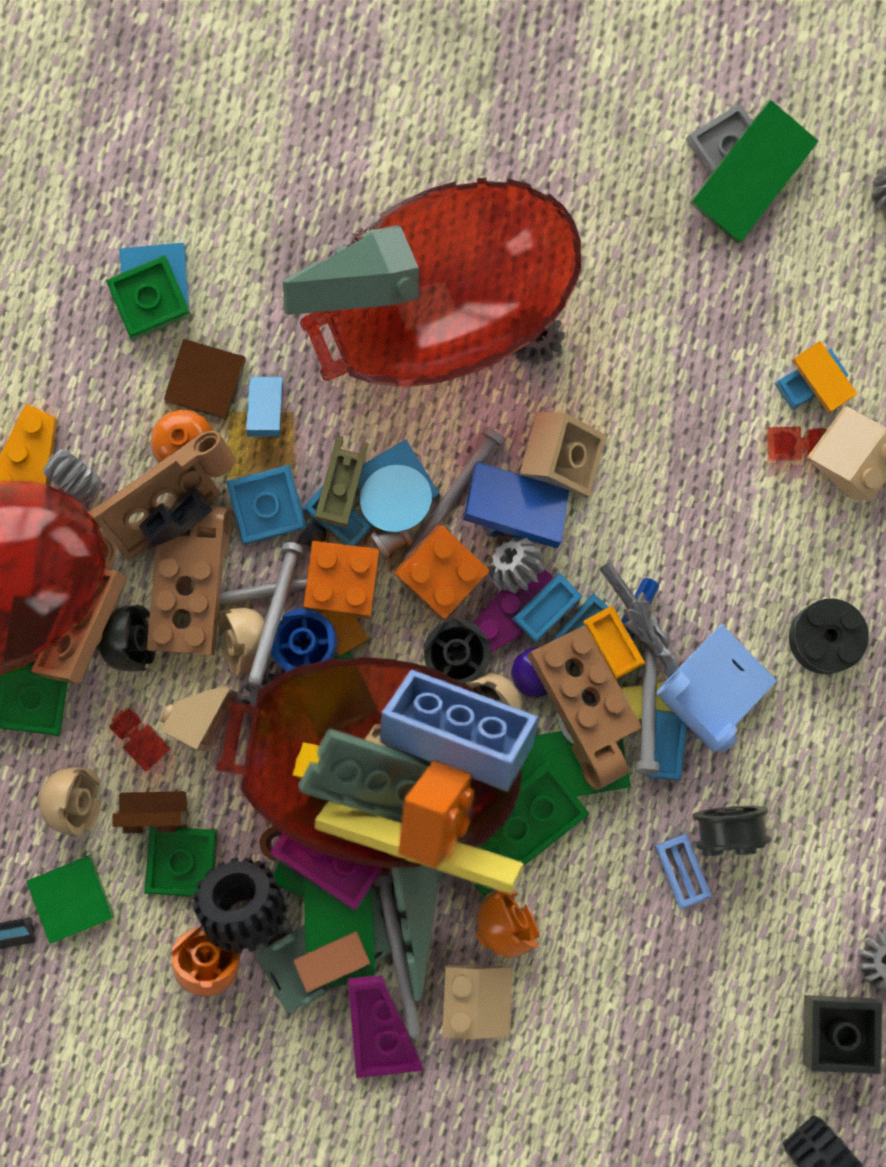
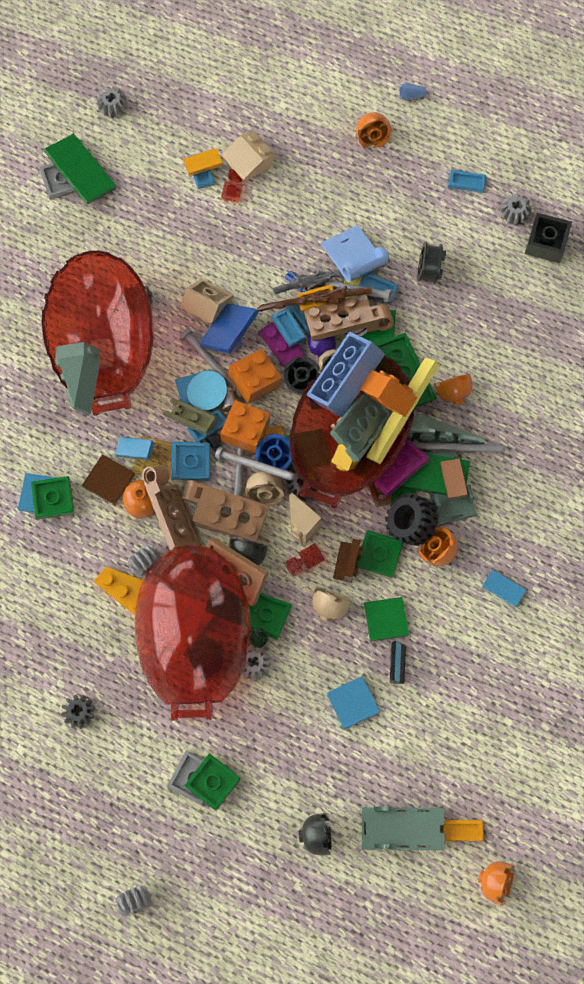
camera: 75 degrees left, 10 degrees down
(168, 1089) = (504, 588): none -> dark azure tile
(169, 523) = (185, 502): black slope -> none
(378, 1031) = (497, 466): magenta wing -> none
(477, 1001) = (491, 415): tan slope -> none
(515, 564) = (261, 335): light grey gear -> none
(614, 651) = (320, 296): none -> reddish brown sword
(693, 898) = (447, 296): light blue tile -> none
(847, 632) = (341, 194): pearl dark grey wheel -> none

